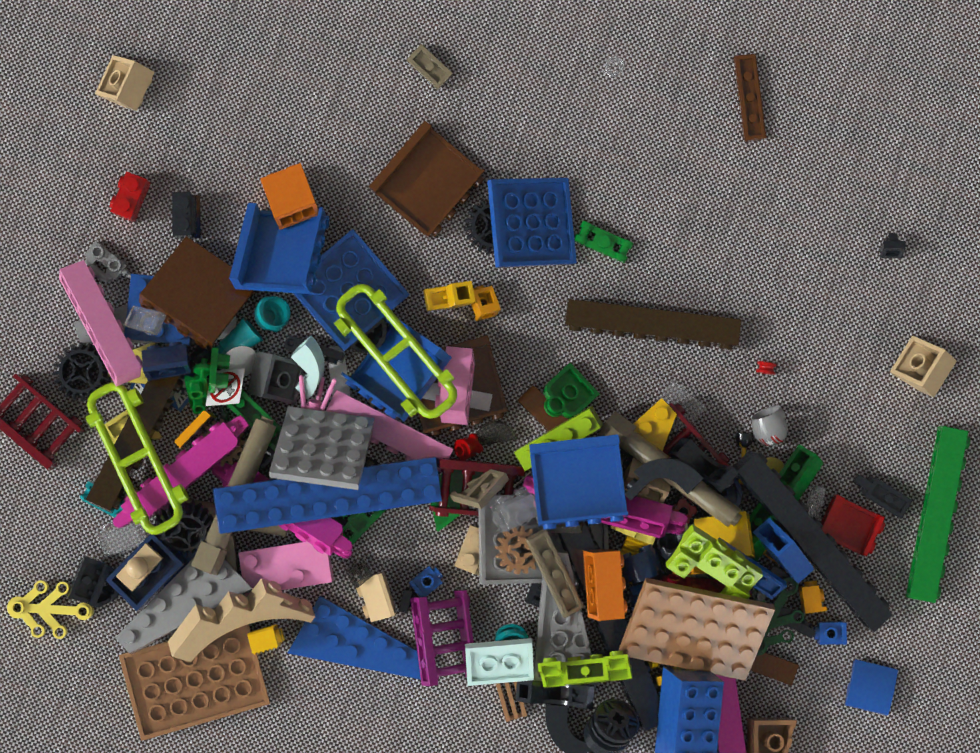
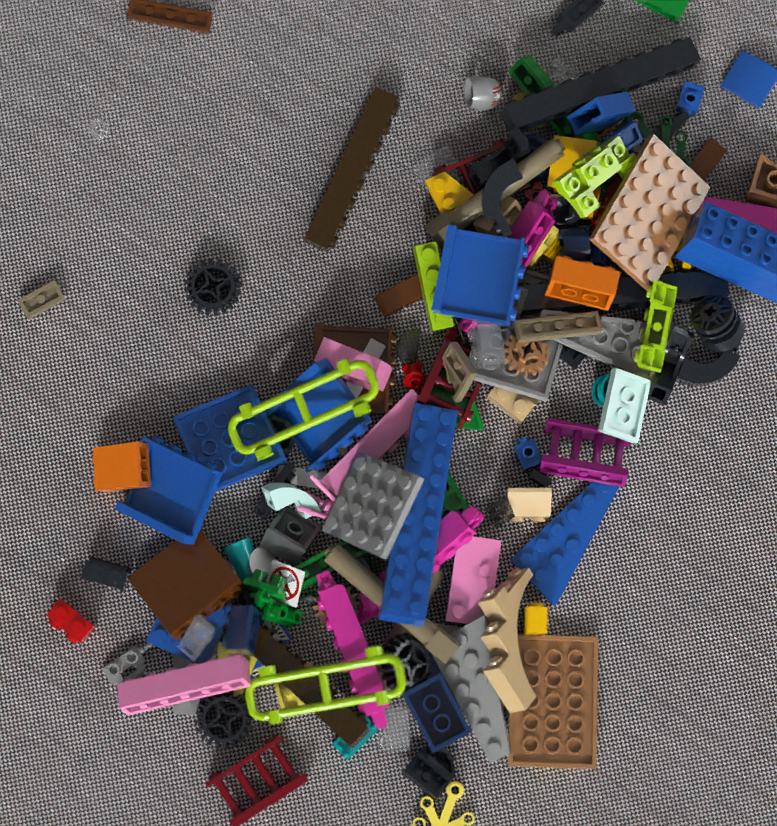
camera: 75 degrees left, 5 degrees down
(139, 567) = (431, 714): tan tile -> none
(195, 429) = (315, 626): light orange tile -> none
(272, 313) = (228, 518): teal helmet -> none
(427, 180) = (150, 335): reddish brown panel -> none
(449, 296) = (266, 347): yellow brick -> none
(491, 306) = (282, 318): light orange brick -> none
(515, 715) = (678, 403): medium nougat tile -> none
(531, 222) = (221, 248): blue plate -> none
(568, 393) = (393, 266): green plate -> none
(603, 242) = (261, 191): green plate -> none
(743, 440) = (488, 121): black hinge -> none
(766, 368) = (427, 80): red bush -> none
(811, 597) = (652, 105): light orange brick -> none
(852, 525) = (597, 47): red panel -> none

